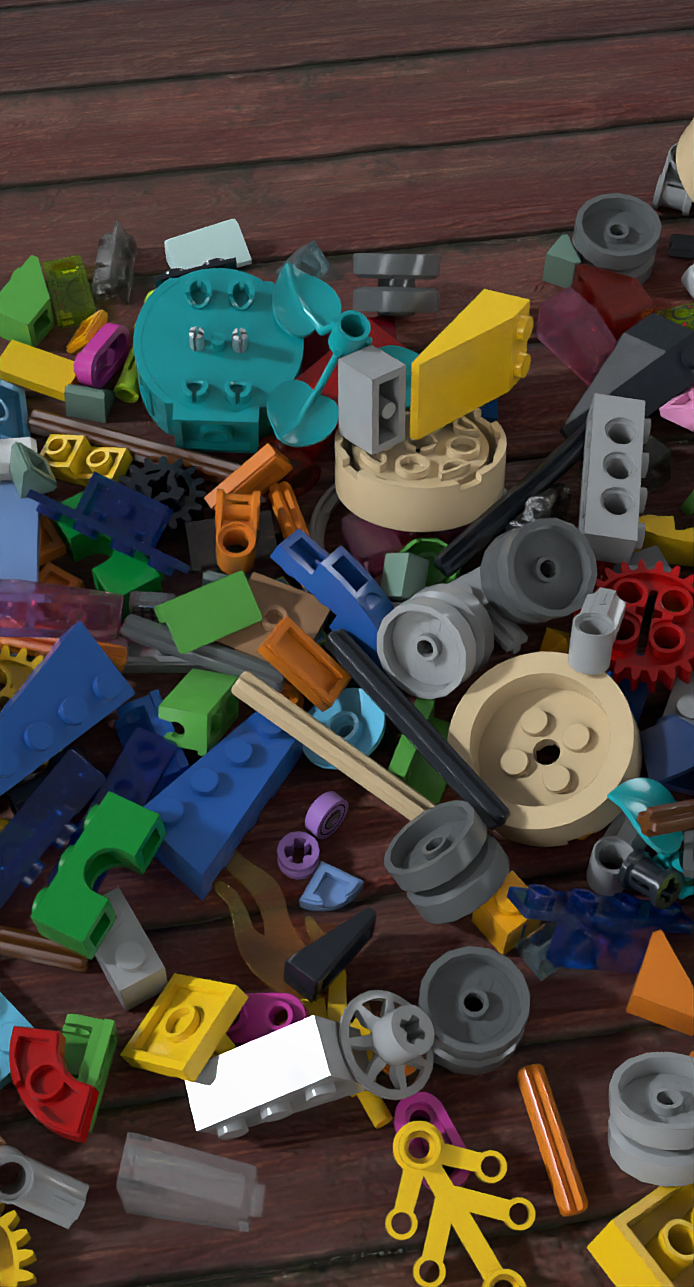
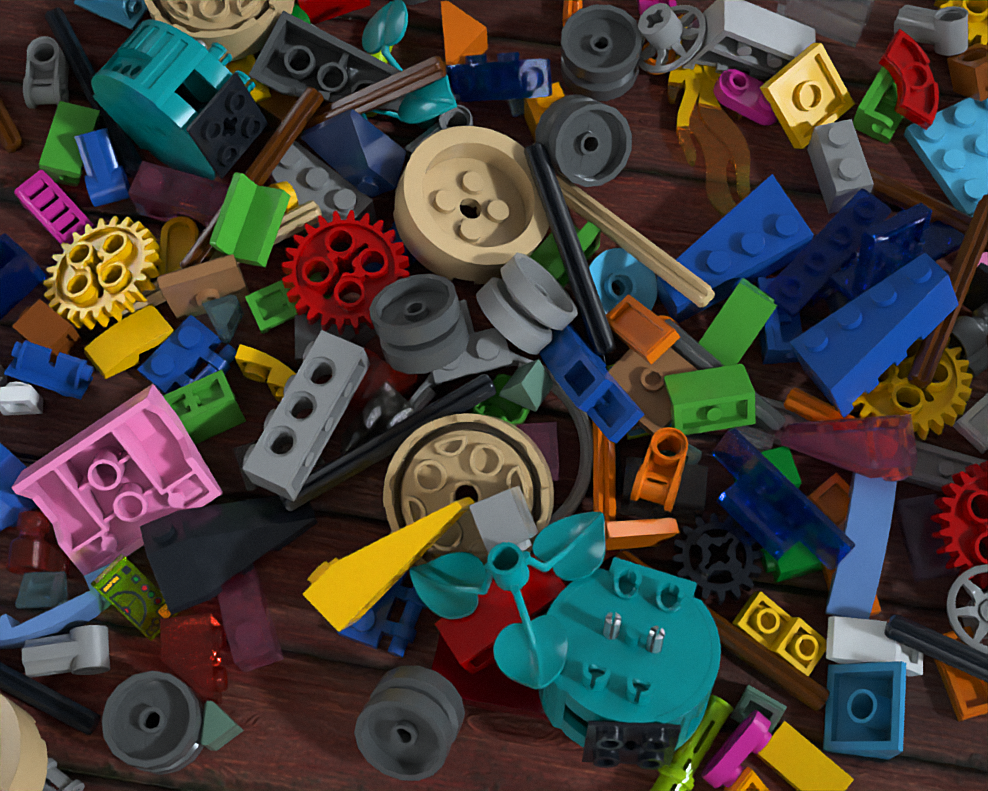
camera: 155 degrees left, 10 degrees up
(30, 471) = (838, 600): sand green slope -> none
(113, 836) = (834, 201): green arch -> none
(286, 848) = (677, 202): medium lavender bush -> none
(323, 960) = (693, 110): black slope -> none
(326, 814) = (657, 225): medium lavender tile -> none
(330, 889) = (668, 180): medium blue tile -> none
(595, 632) = (396, 244): light grey piece -> none

